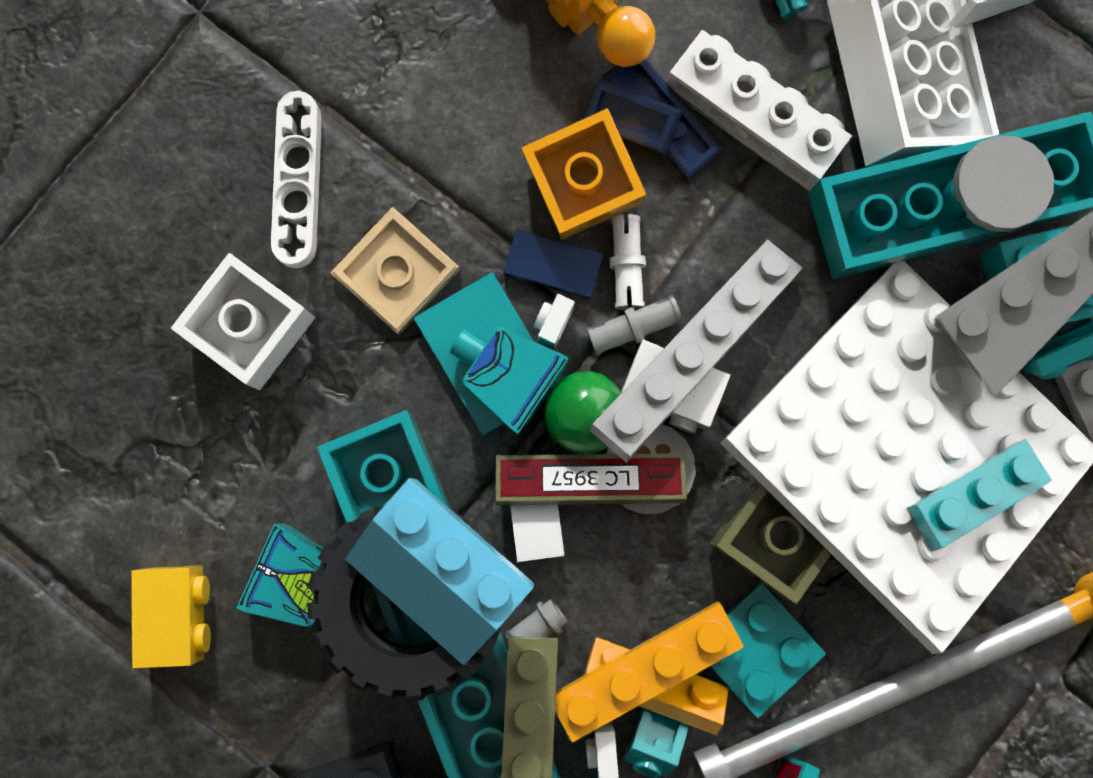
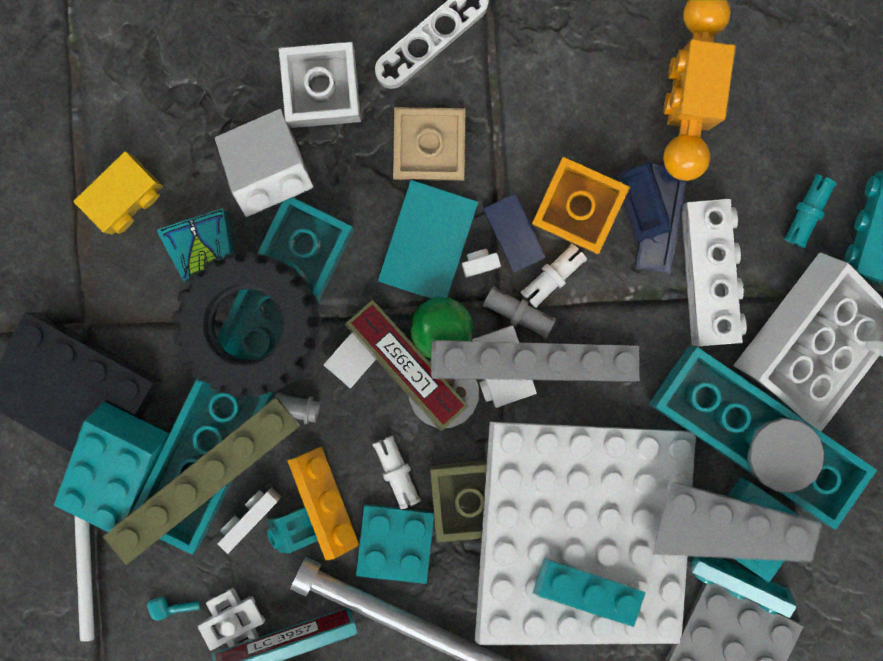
camera: 45 degrees right, 5 degrees up
(267, 443) = (263, 163): none -> white brick
(438, 570) = (276, 329): medium azure slope -> none
(508, 374) = (424, 265): teal torso -> none
(646, 671) = (325, 490): light orange plate -> none
(687, 583) = (396, 472): none -> white pin

